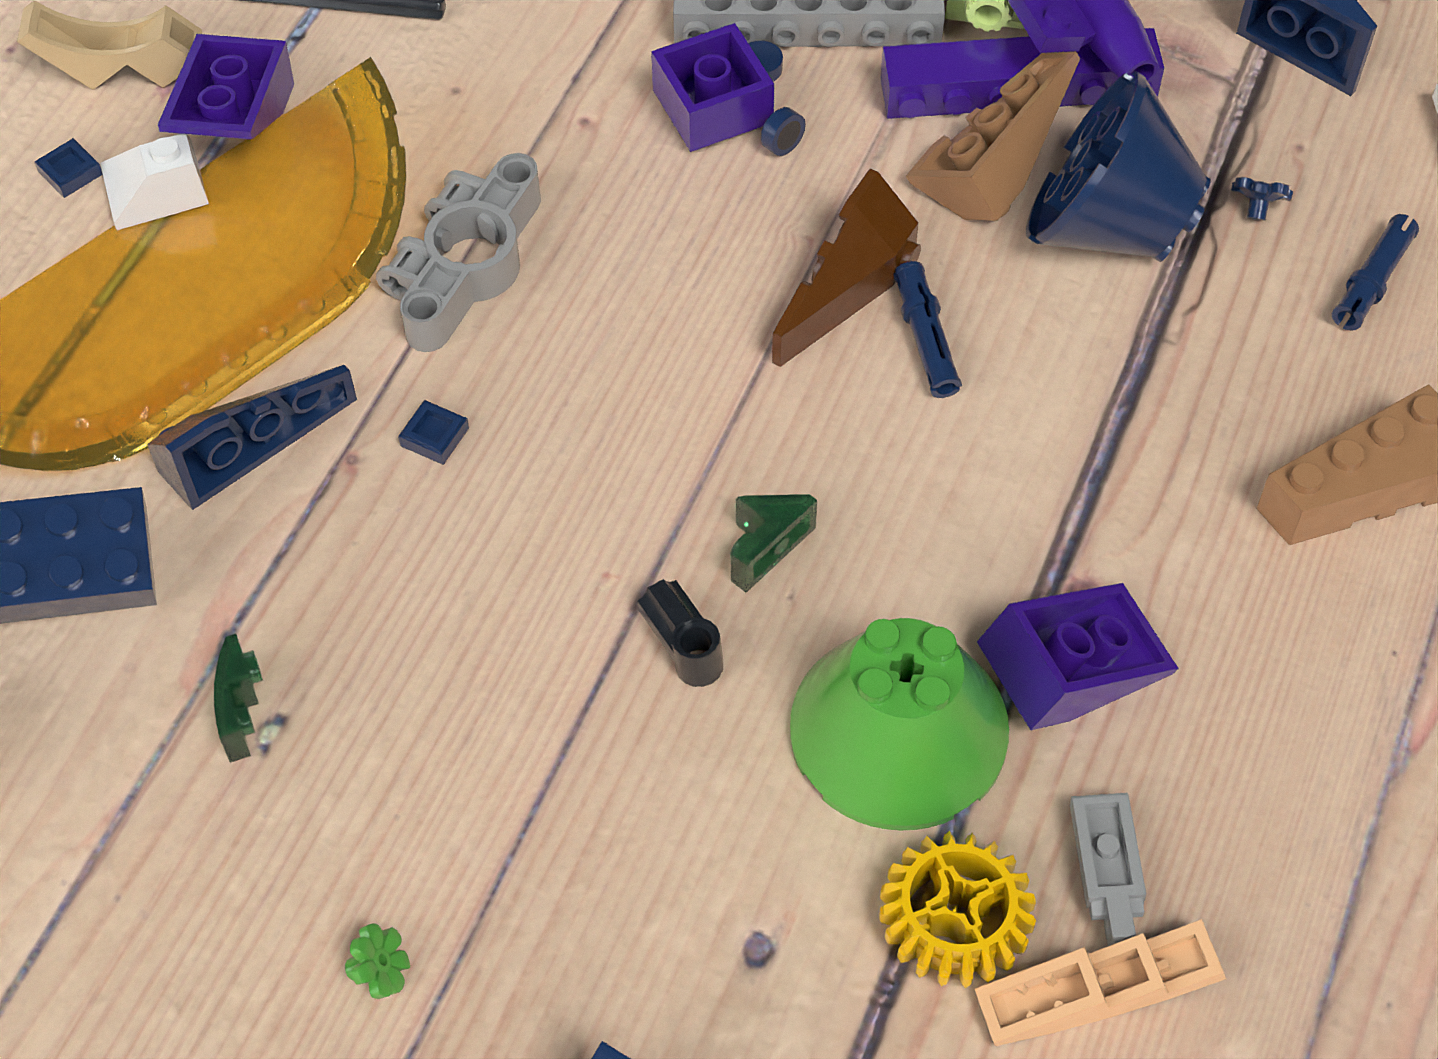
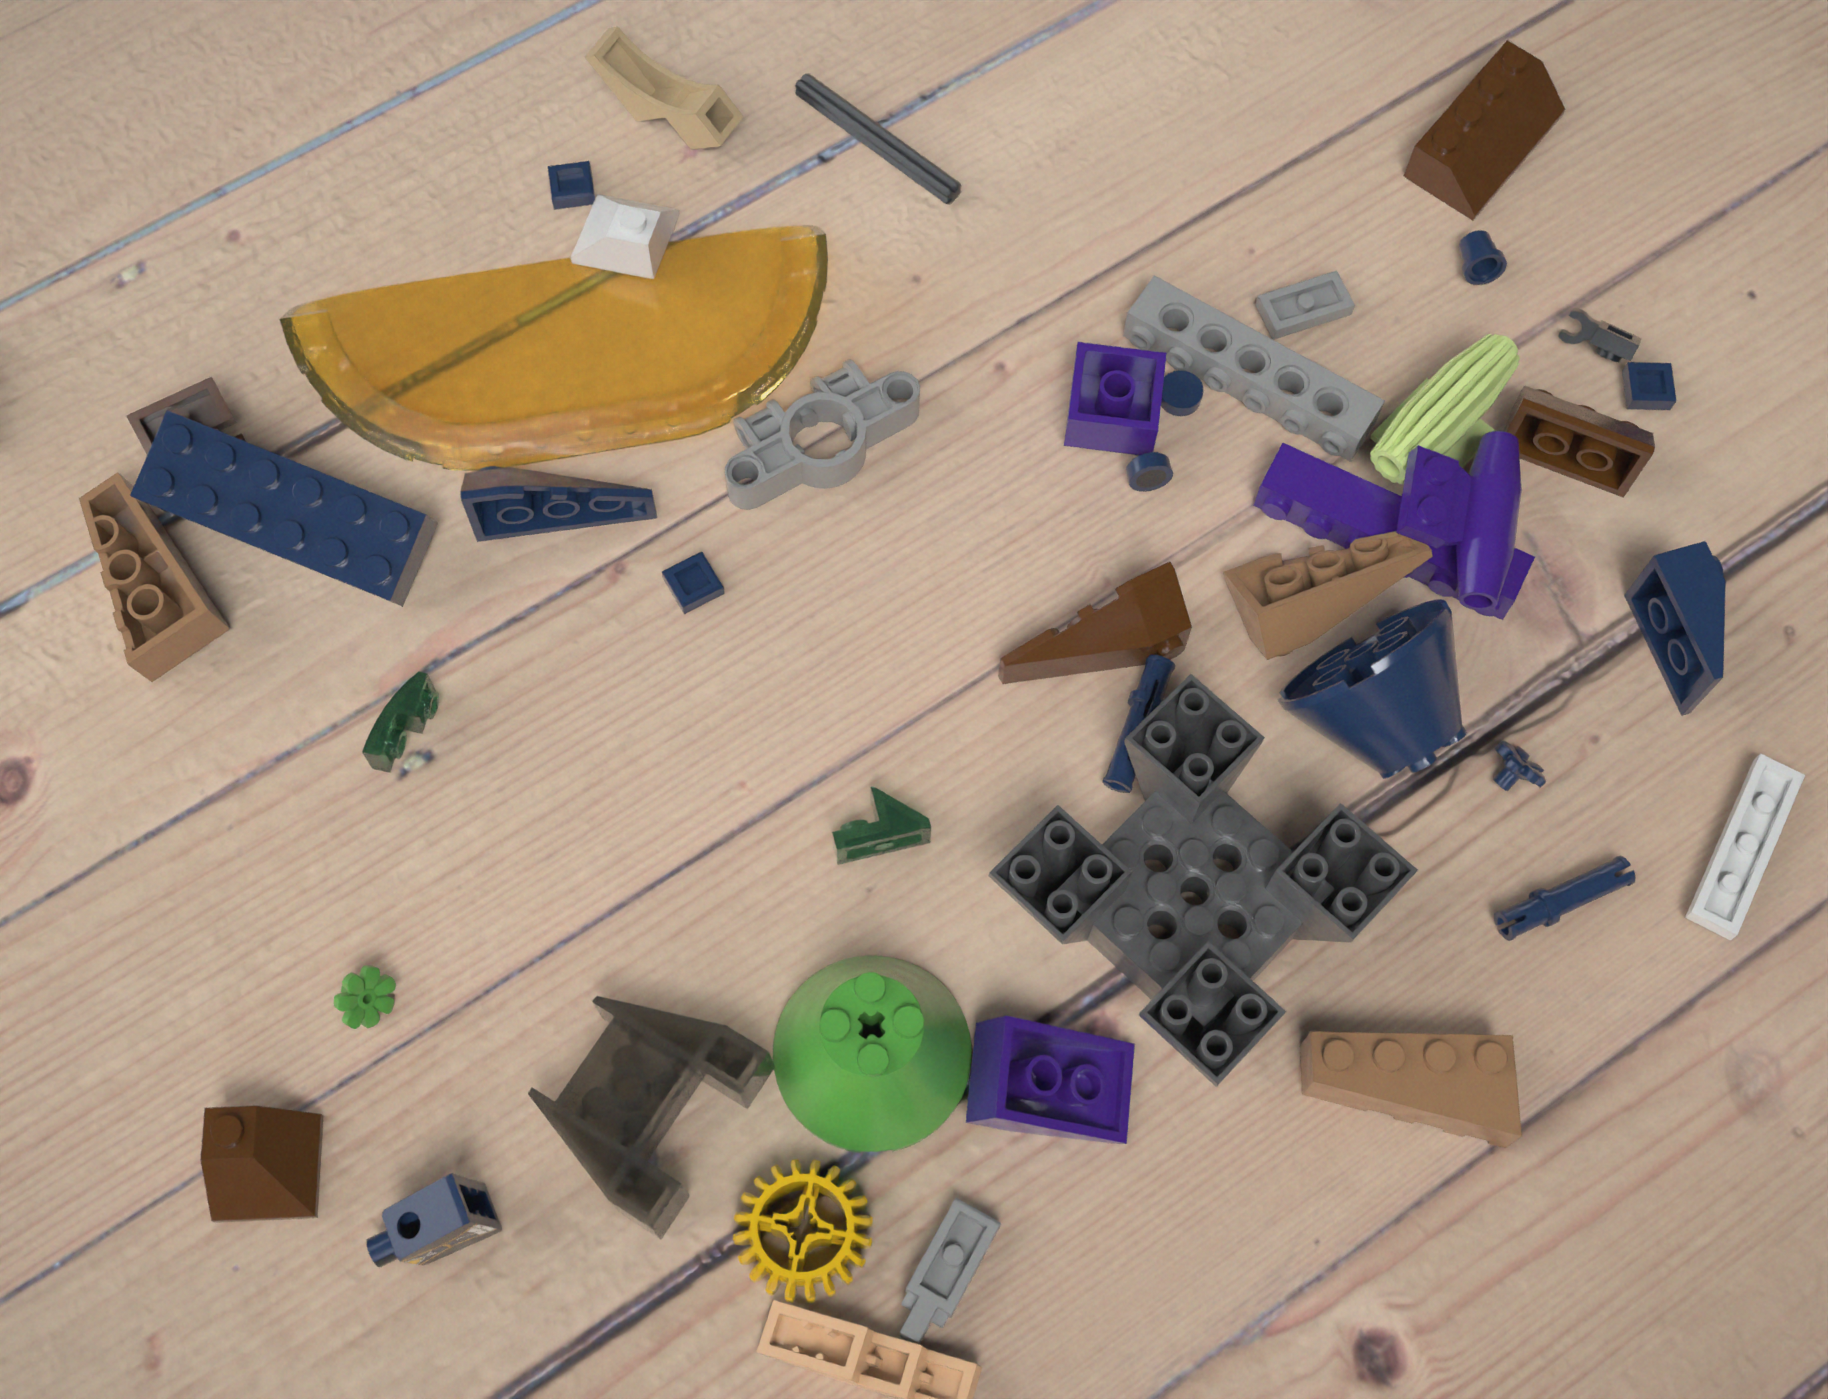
camera: 30 degrees right, 10 degrees up
(229, 87) = (722, 189): dark purple slope -> none
(682, 632) = (759, 870): black piece -> none
(712, 885) = (633, 1093): none -> clear smoke wedge
(1086, 428) = (1107, 895): none -> flat silver slope

